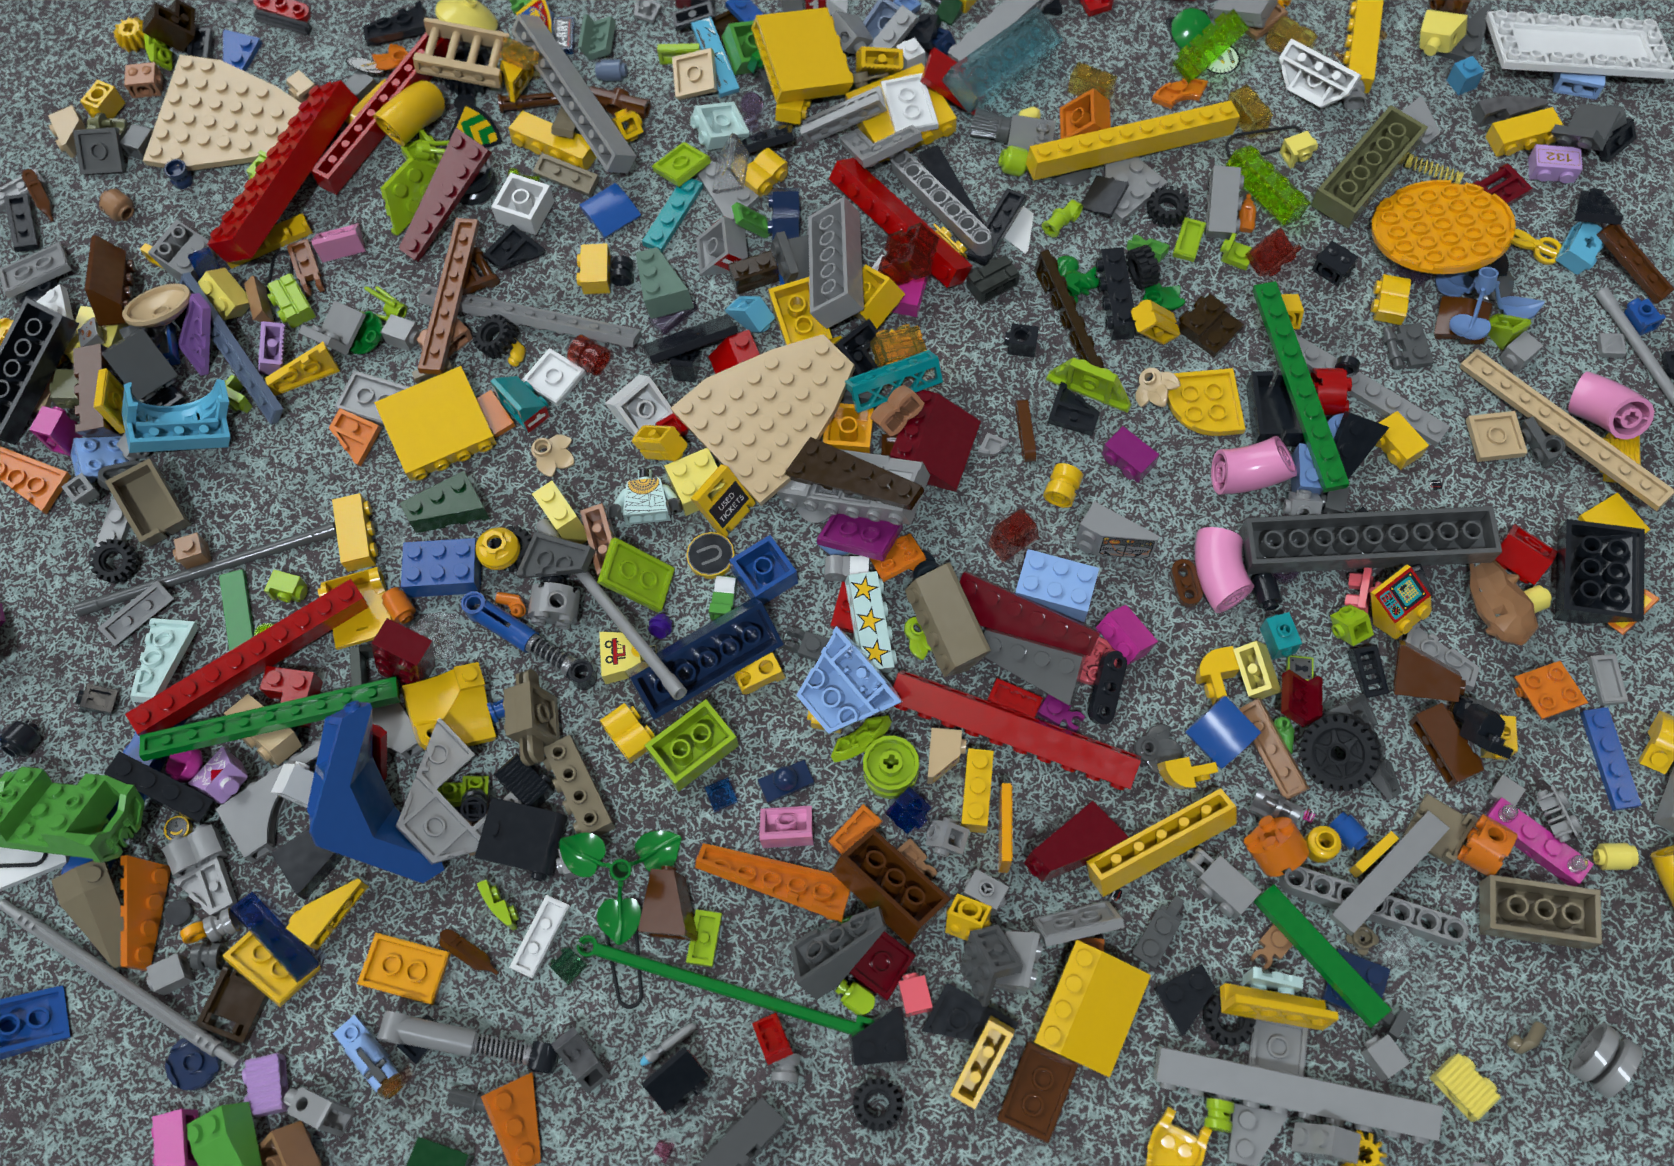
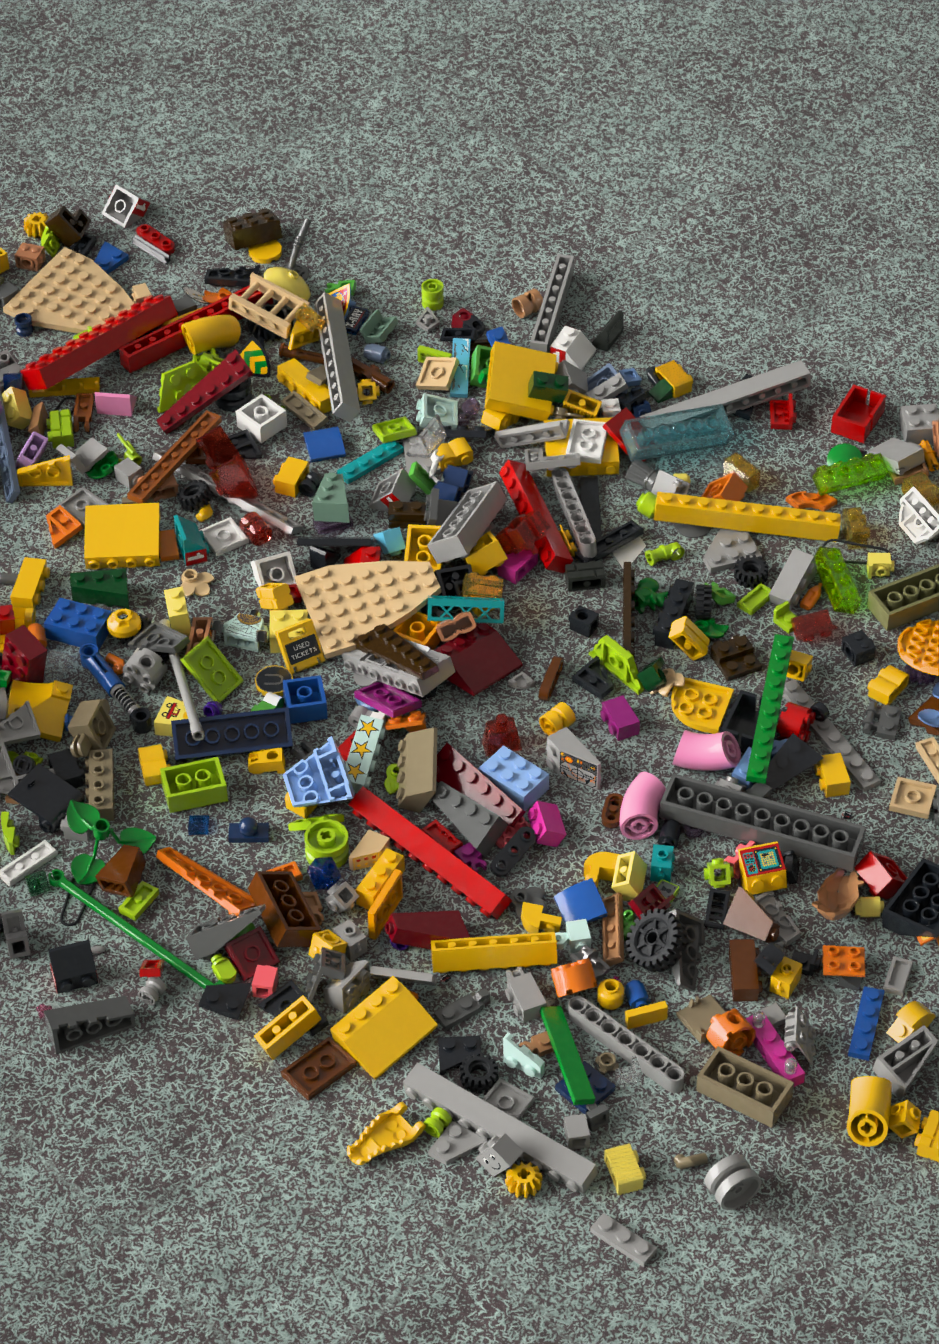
camera: 20 degrees right, 20 degrees down
(529, 293) = (230, 469): none -> clear red windscreen
(752, 188) = (436, 459): none -> white piece
(786, 827) = (231, 858): bright pink slope -> none
(841, 52) = (548, 386): none -> dark green brick
(893, 1096) = (203, 1043): black tyre -> none
(1104, 195) = (705, 548): black piece -> none
(1137, 383) = (652, 675): none -> dark green plate
(1226, 62) = (861, 492): sticker -> none
(1238, 777) = (576, 936): none -> light aqua brick
(1276, 1007) = (513, 1071): yellow fence -> none
(1389, 873) = (647, 1022): light grey tile -> none
(1506, 703) = (809, 961): none -> black bracket
(1615, 856) = (827, 1078): light yellow brick -> none

